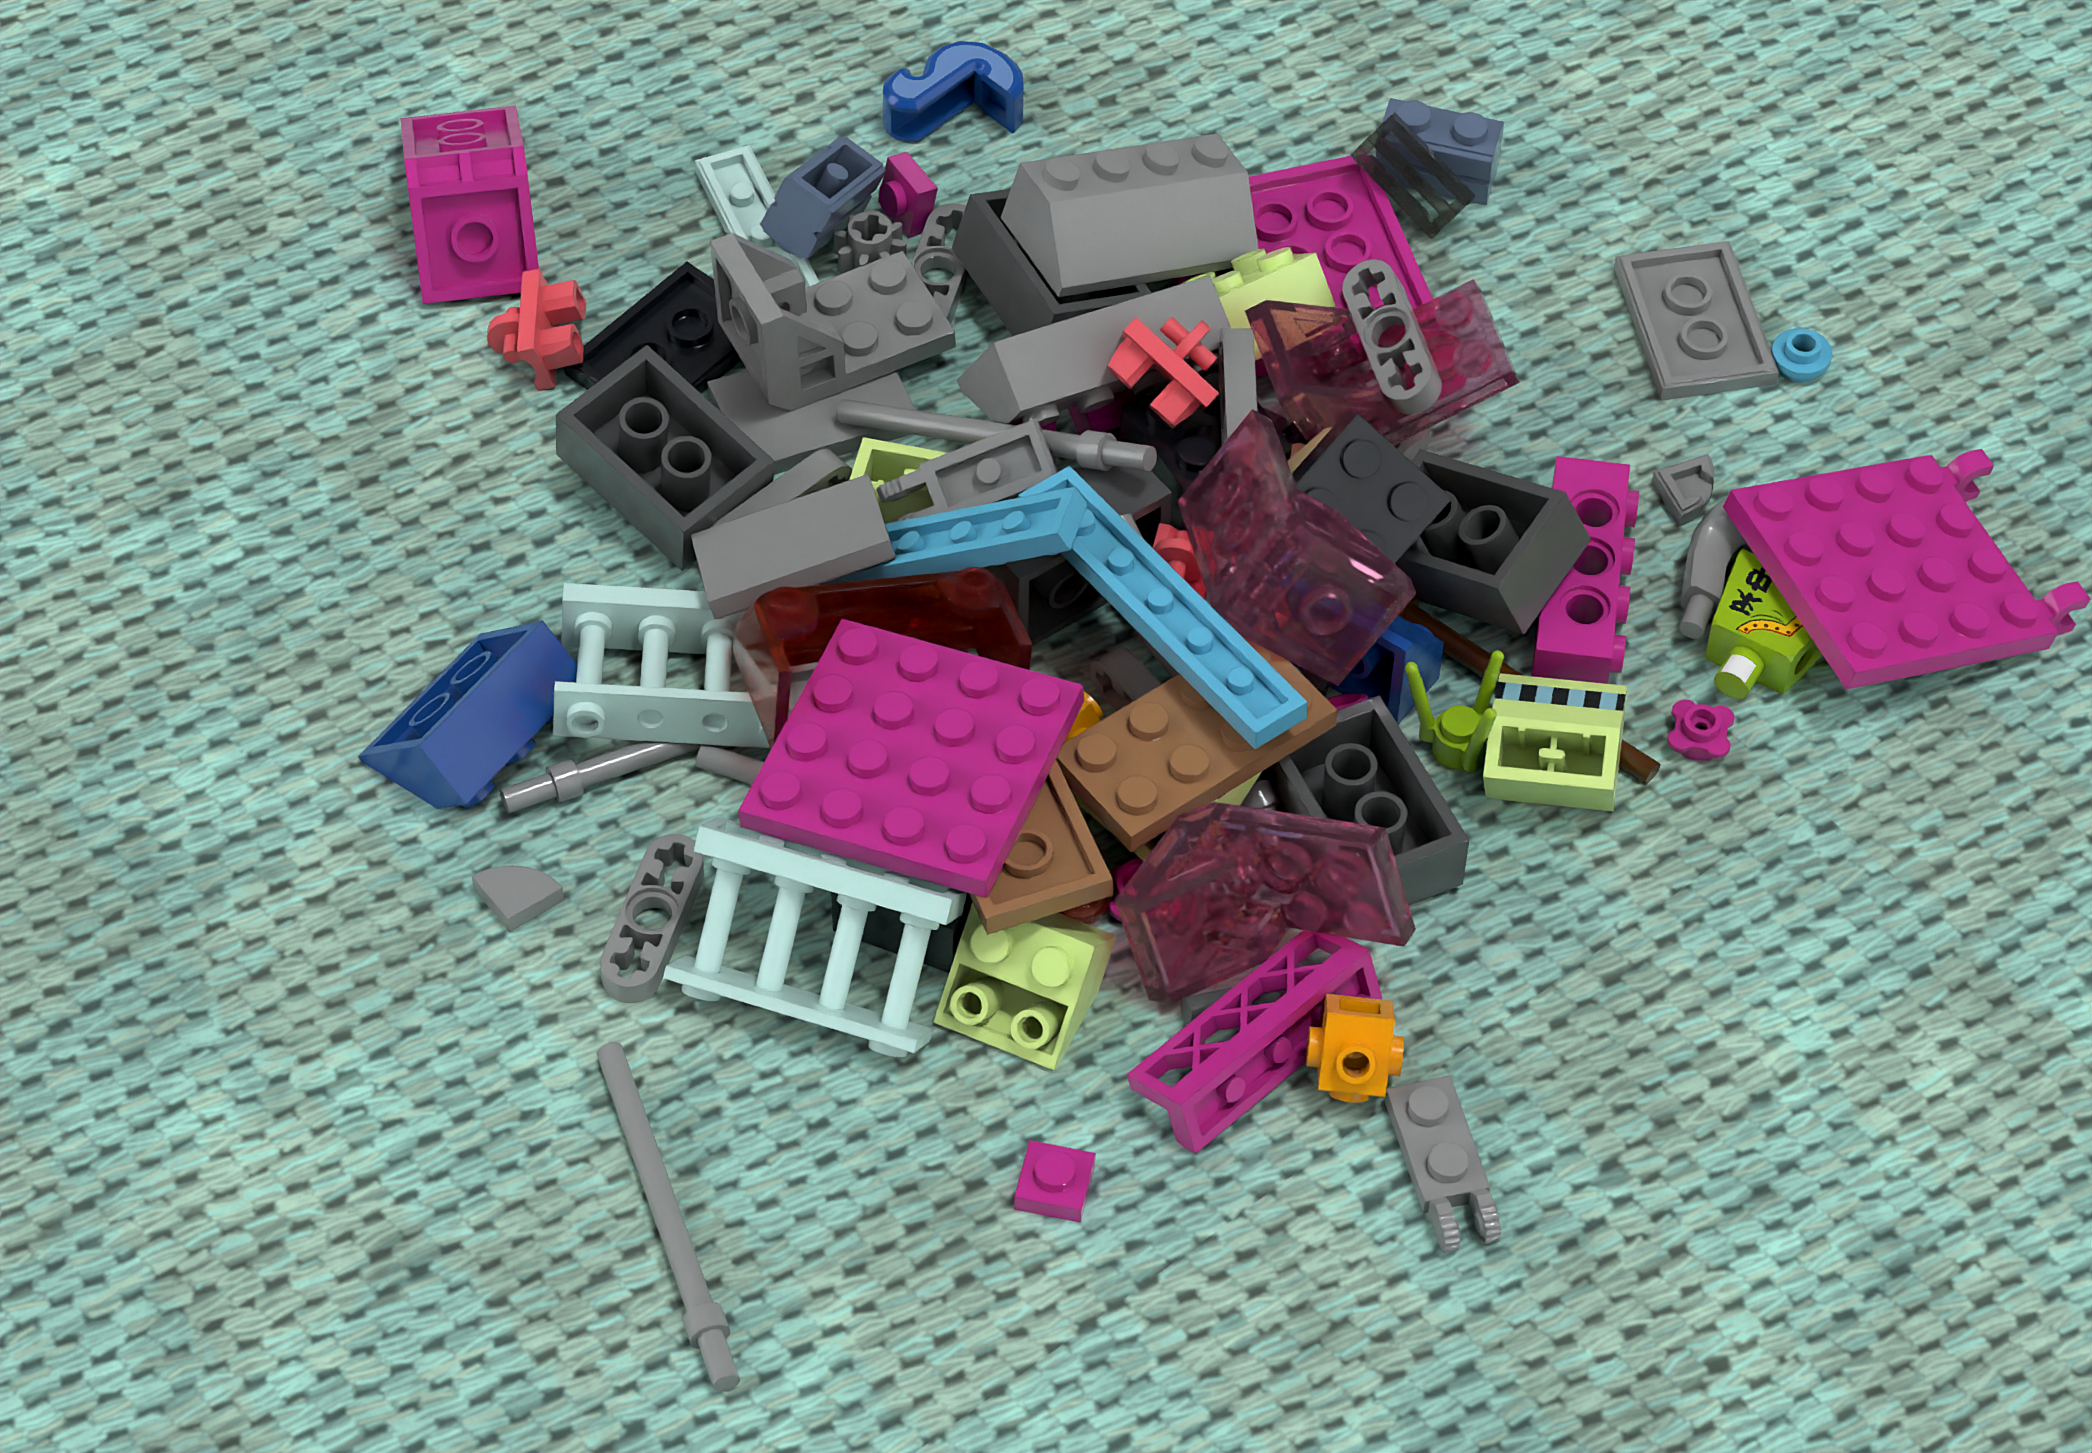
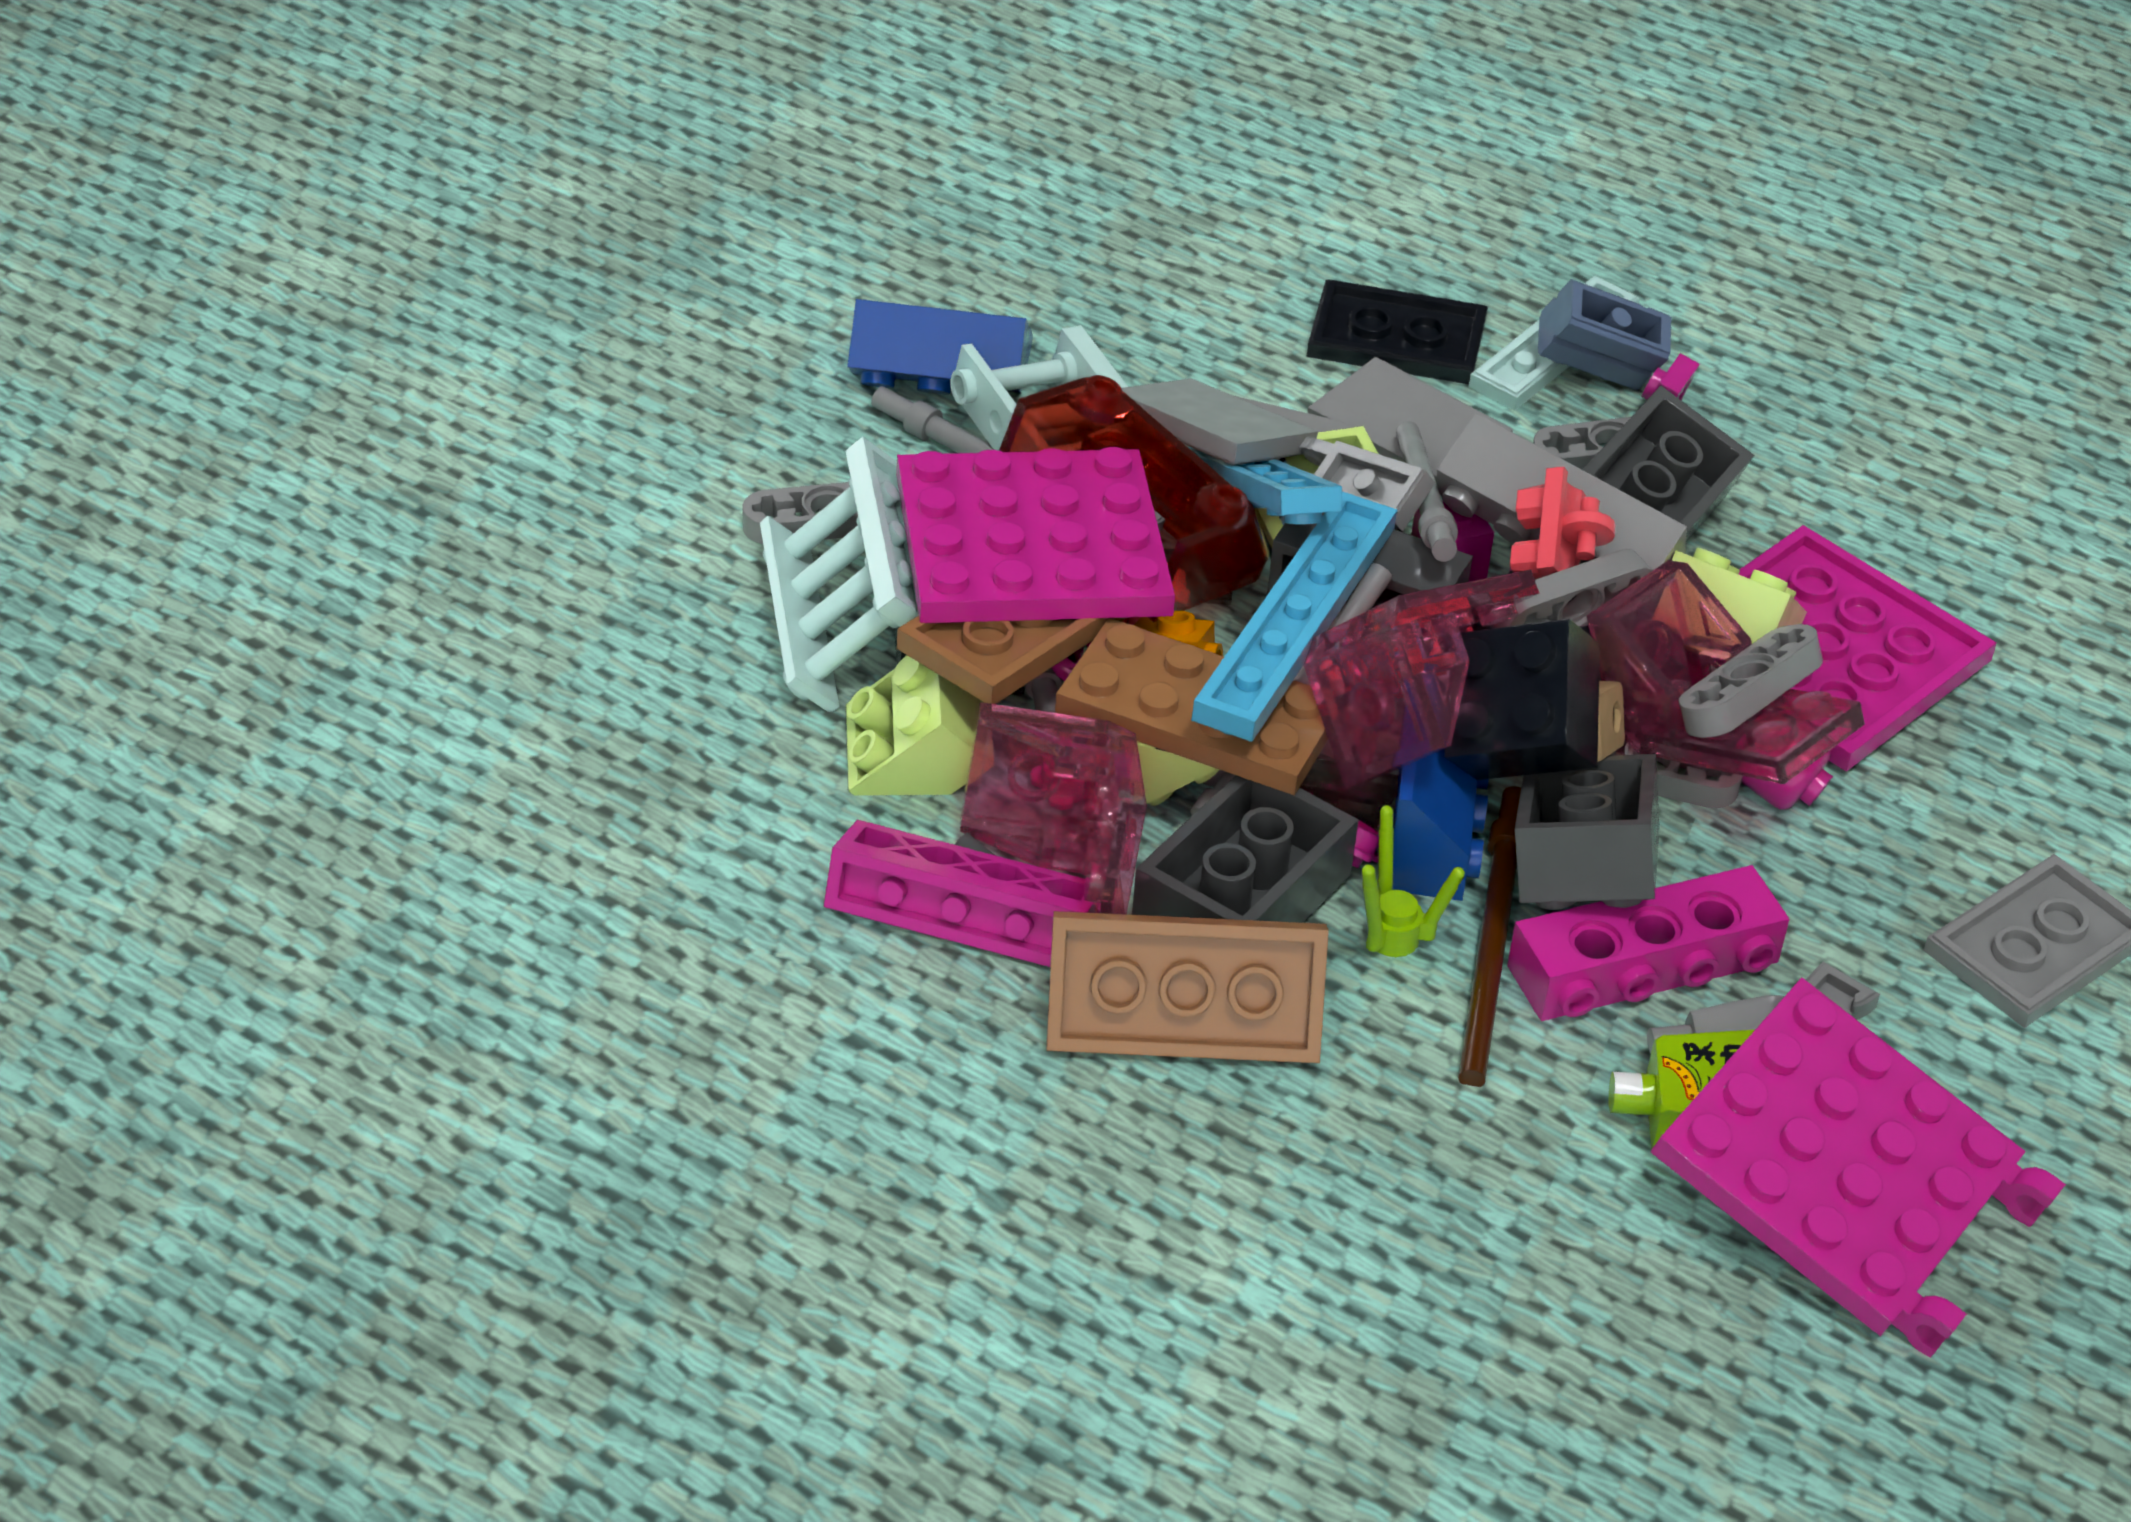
camera: 60 degrees right, 10 degrees down
(469, 203) = (1419, 166): dark pink bracket -> none
(517, 893) = (797, 435): light grey tile -> none
(534, 328) = (1342, 250): coral hips -> none
(660, 453) = (1263, 330): dark grey brick -> none
(704, 1319) = (466, 668): light grey bar -> none
(826, 335) = (1443, 383): light grey bracket -> none
(867, 240) = (1594, 390): light grey gear -> none
(949, 84) = (1804, 376): blue animal -> none
(1054, 1181) = (733, 826): dark pink plate -> none
(1132, 214) = (1740, 486): light grey slope -> none
(1355, 1048) = (985, 949): light orange brick -> none
(1397, 191) = (1980, 671): clear smoke tile -> none
(1442, 1158) = (922, 1069): light grey hinge -> none
(1461, 140) = (2046, 687): sand blue brick -> none
(1487, 918) = (1187, 987): none -> medium nougat plate
(1555, 742) = (1428, 973): yellowish green slope -> none
(1699, 743) = (1547, 1093): dark pink plate -> none
(1800, 365) = (2069, 1027): medium azure plate -> none

